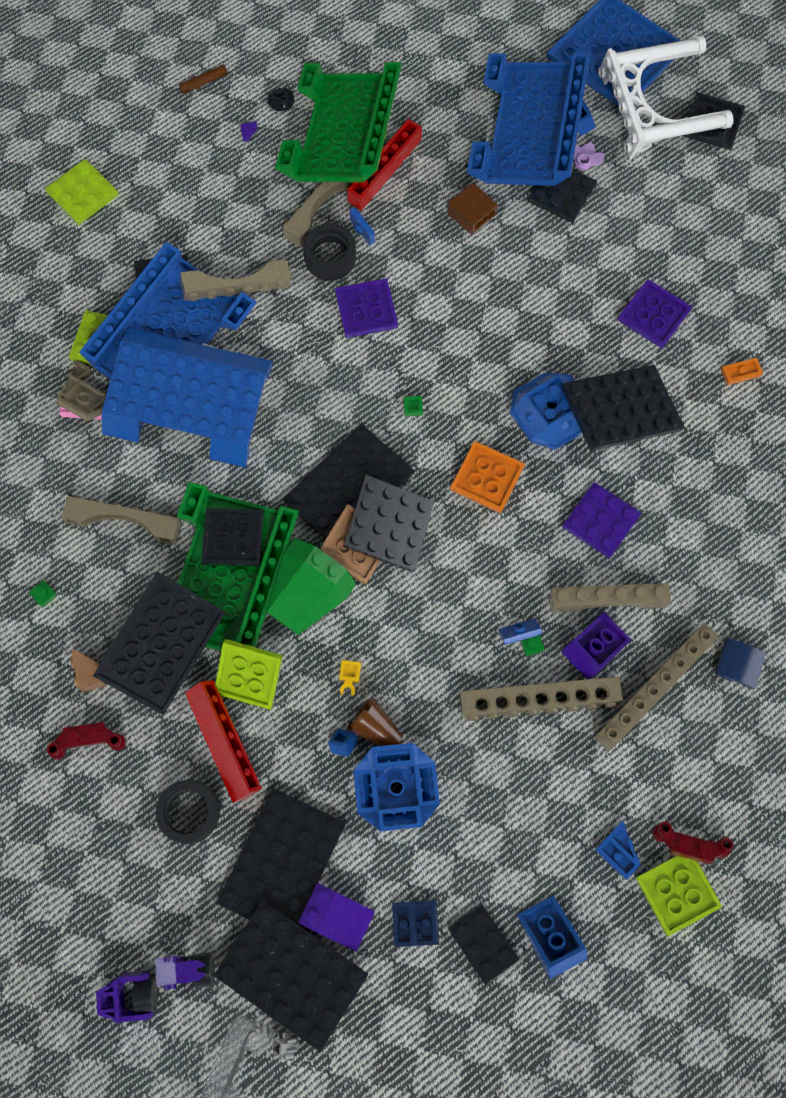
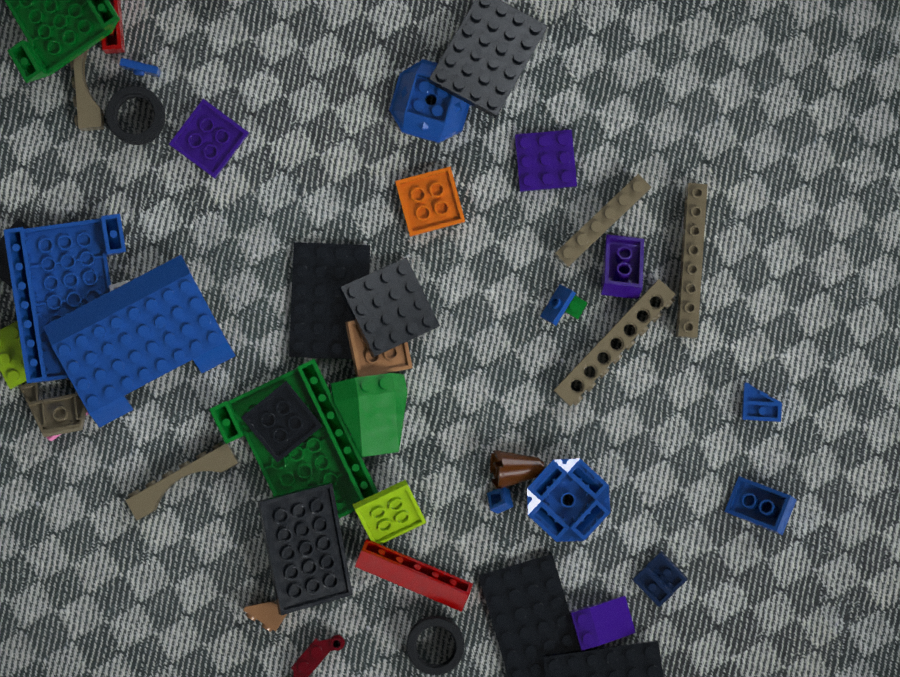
camera: 45 degrees left, 15 degrees up
(42, 593) = (176, 587): green plate -> none
(200, 285) = (63, 240): dark tan arch -> none
(349, 674) = (460, 446): yellow plate -> none
(413, 406) = (321, 191): green plate -> none
(483, 944) = (717, 551): black plate -> none
(678, 893) = (822, 398): lime plate -> none
(690, 846) = (807, 359): dark red plate -> none
(740, 663) = (737, 188): dark blue slope -> none

